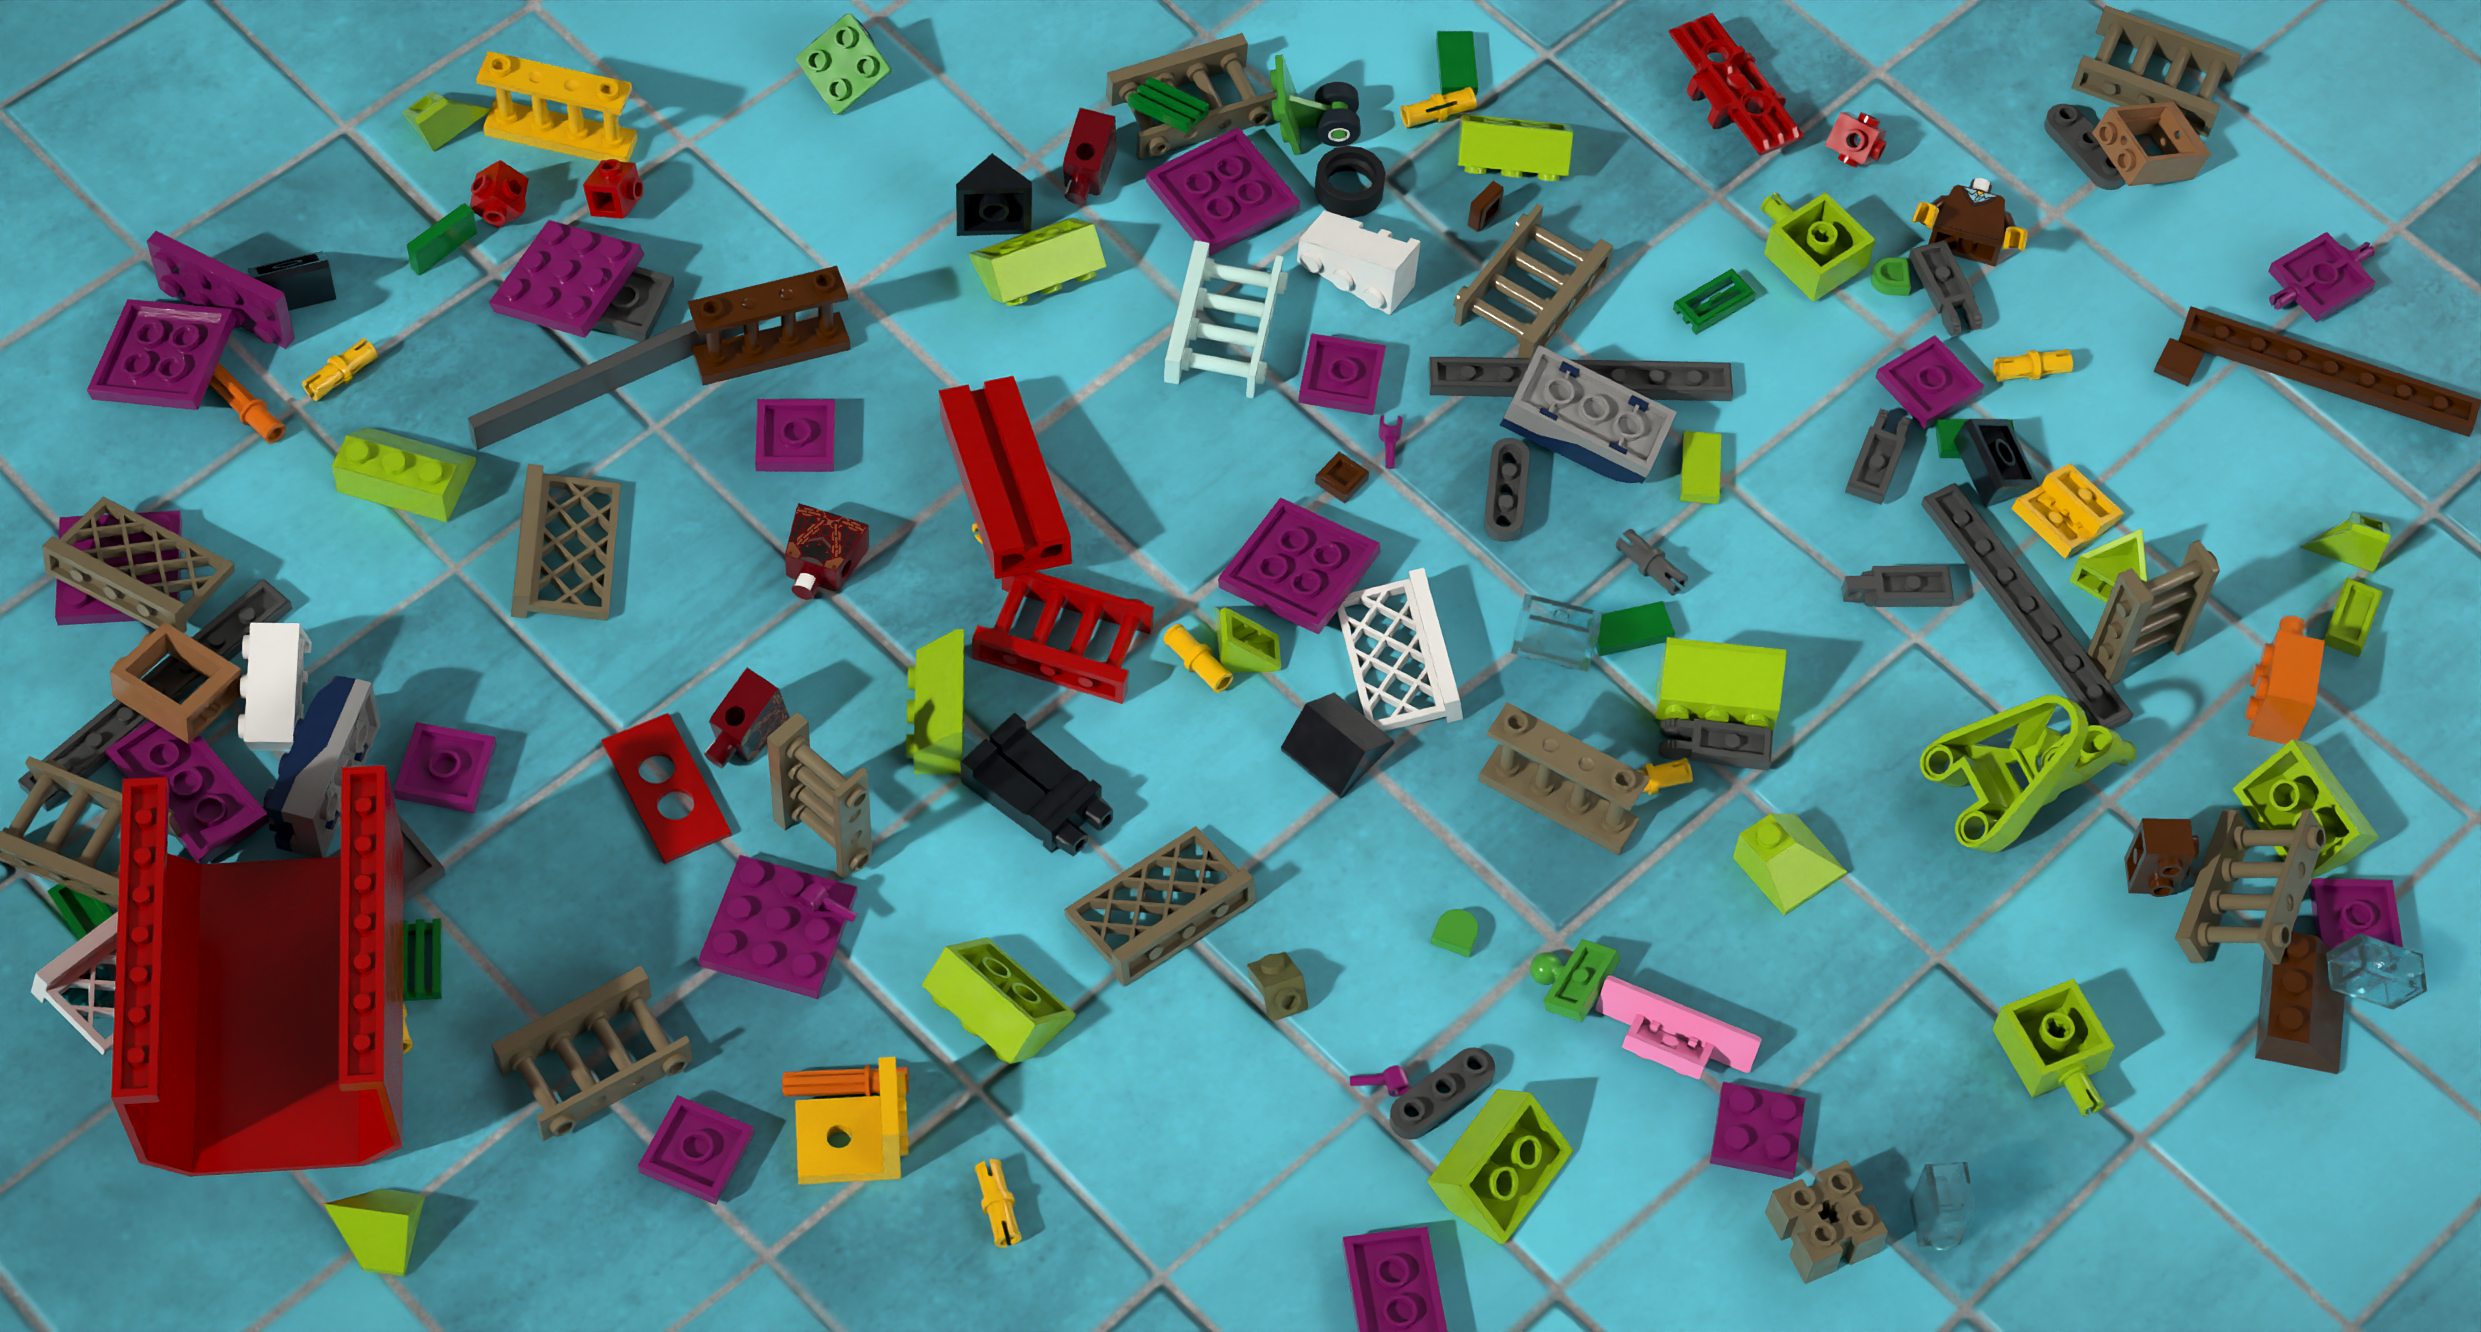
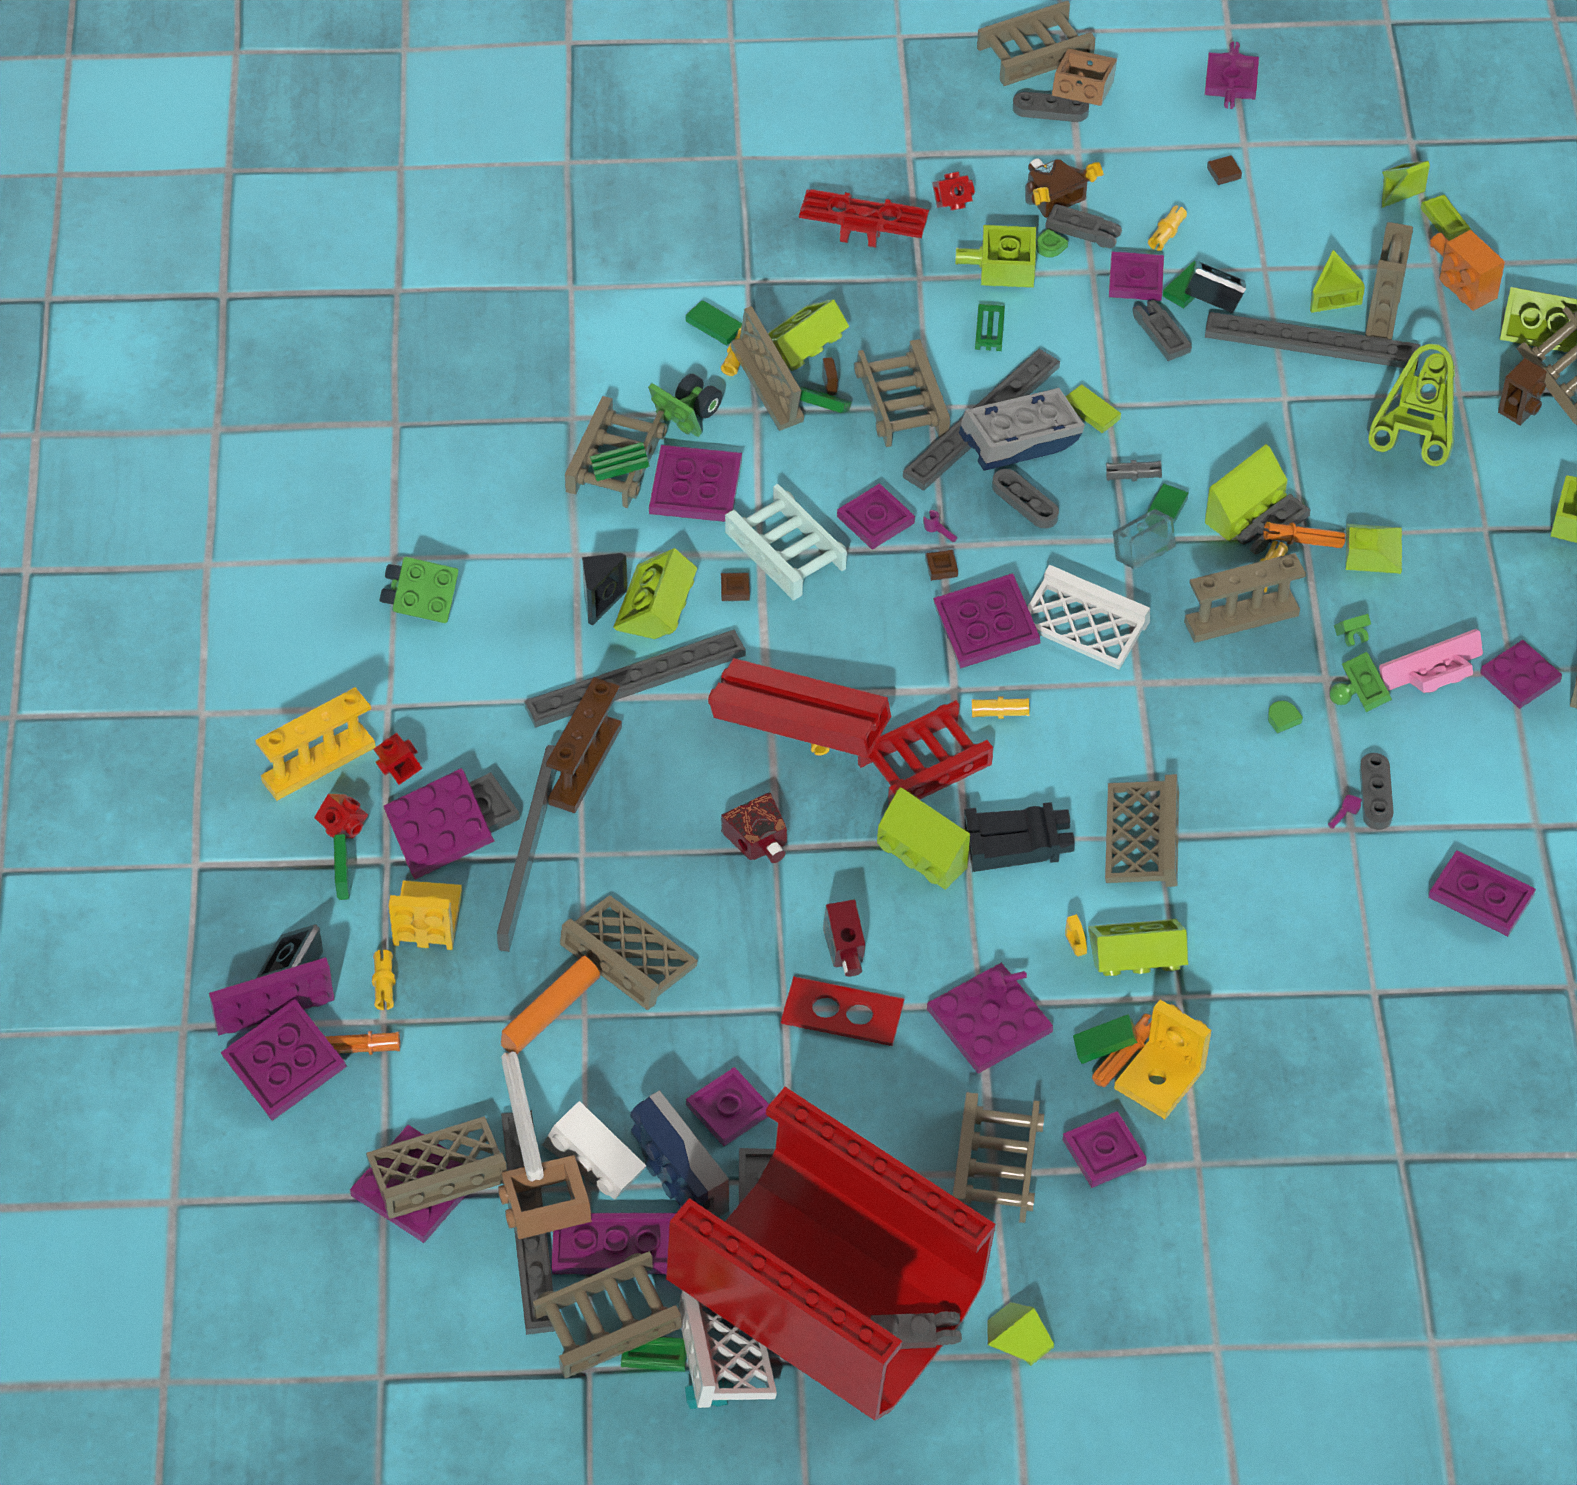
camera: 45 degrees left, 5 degrees down
(256, 594) = (522, 1116): none -> white axle
(295, 1123) = (920, 1329): none -> dark grey hinge
(401, 472) = (494, 995): lime slope -> none
(429, 525) = (549, 1005): none -> orange brick
(430, 345) = (425, 913): none -> yellow bracket
(441, 119) = (244, 812): lime slope -> none
(795, 435) = (662, 789): magenta plate -> none
(819, 795) = (923, 920): dark tan fence -> none
(838, 1051) = (1105, 1039): none -> green tile
(935, 320) = (640, 675): none -> dark grey tile
(963, 926) = (1075, 935): none -> yellow tile
(998, 1203) = (1265, 1032): yellow pin -> none
(1089, 155) = (612, 522): dark red torso -> none
(1126, 318) = (735, 587): none -> reddish brown tile
(1245, 644) = (1007, 681): lime slope -> none
(1279, 984) = (1244, 812): olive bracket -> none
(1335, 743) = (1117, 685): black slope -> none
(1350, 159) = (748, 408): black tyre -> none
(1359, 260) = (813, 454): white wedge -> none
(1422, 149) = (767, 372): none -> dark tan fence
(1448, 221) = (824, 400): none -> green tile
(1501, 1164) = (1445, 793): lime slope -> none
(1646, 915) = (1353, 626): none -> bright green tile
(1723, 778) = (1305, 535): none -> orange axle
(1900, 587) = (1252, 380): dark grey hinge -> none
(2067, 510) = (1271, 280): yellow slope -> none
(2330, 371) = (1291, 116): reddish brown plate -> none

